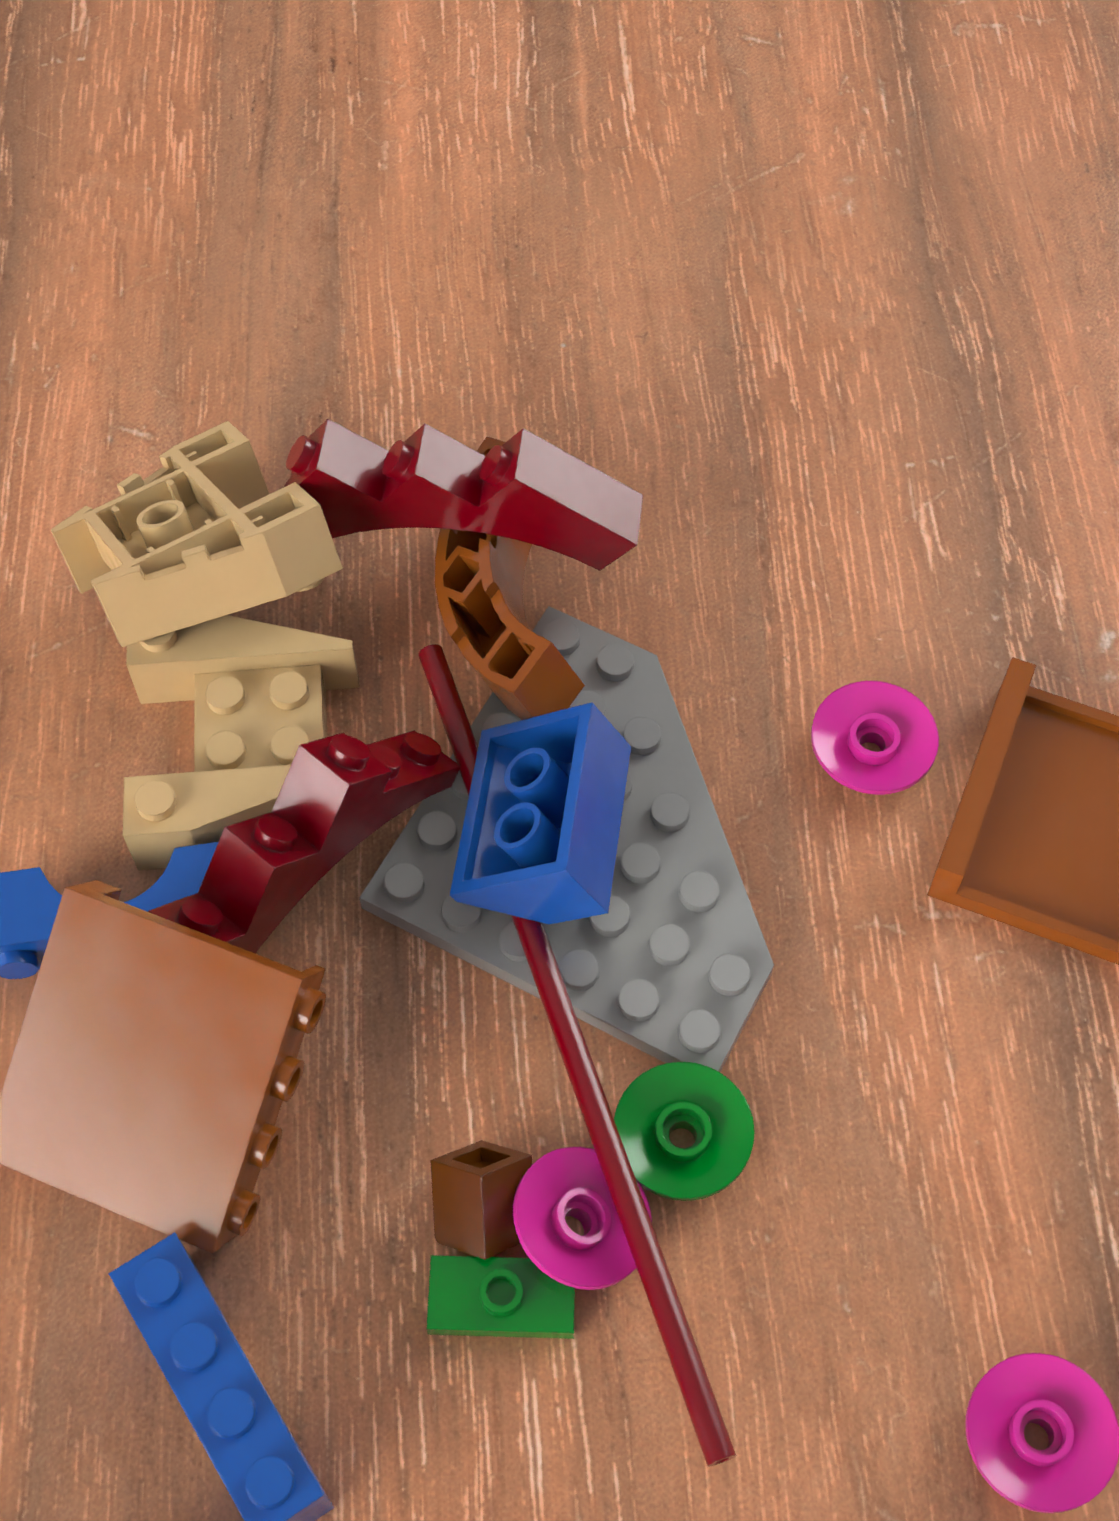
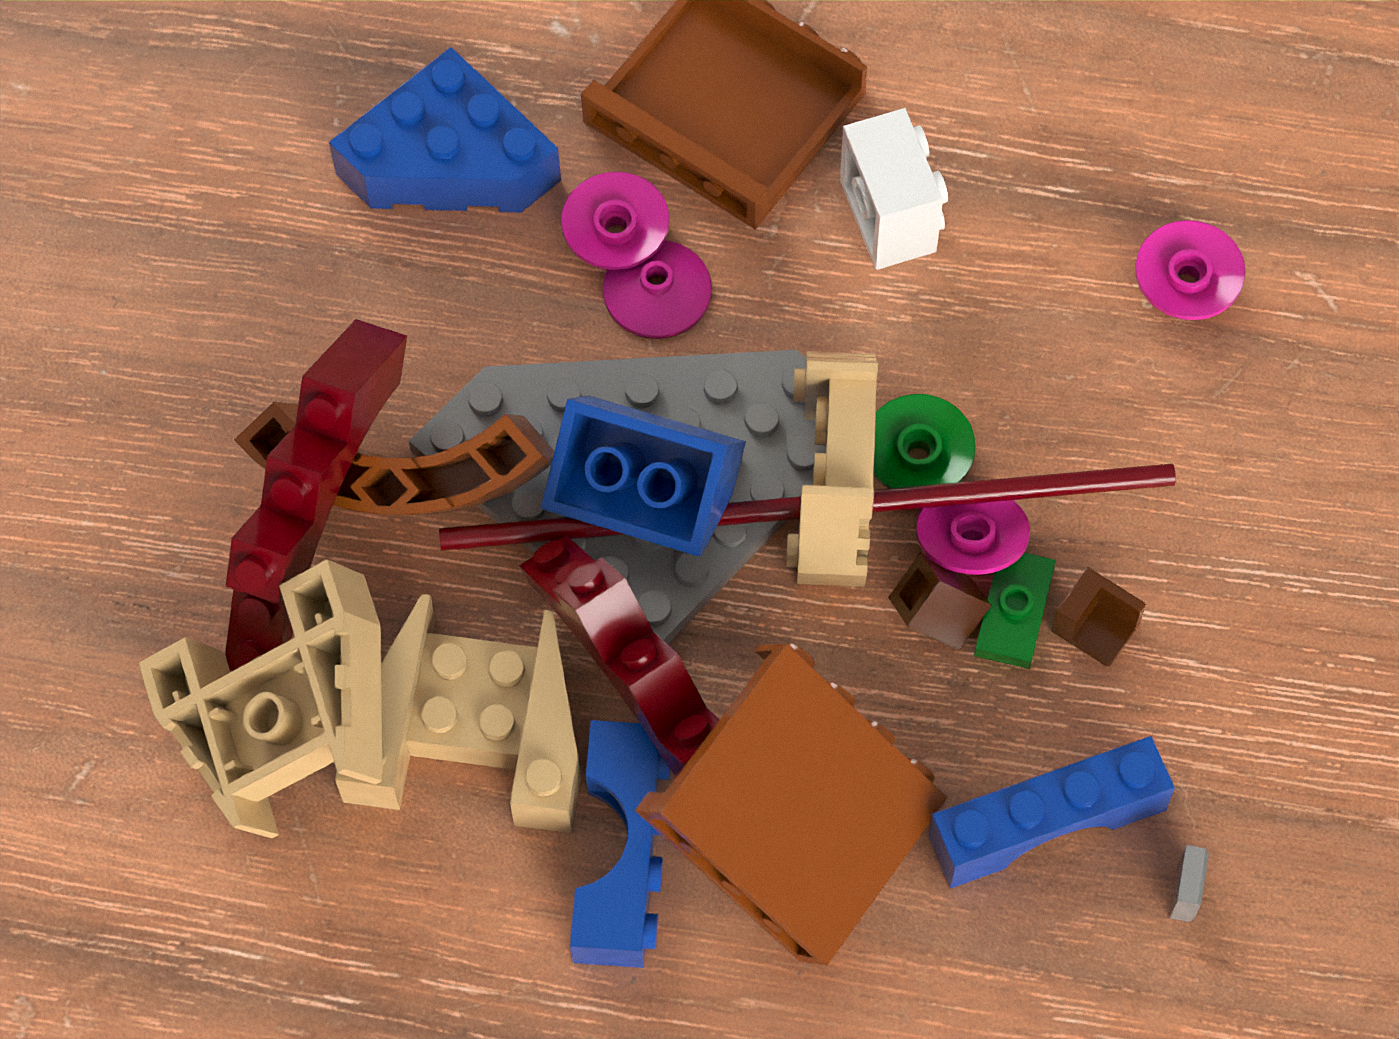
camera: 75 degrees left, 5 degrees up
(504, 1402) = (1098, 617): none -> reddish brown panel
(607, 1008) = (838, 506): none -> tan wedge
(805, 830) = (663, 308): none -> dark pink dish
(908, 553) = (446, 146): none -> blue brick
(1014, 1015) = (892, 188): none -> white brick

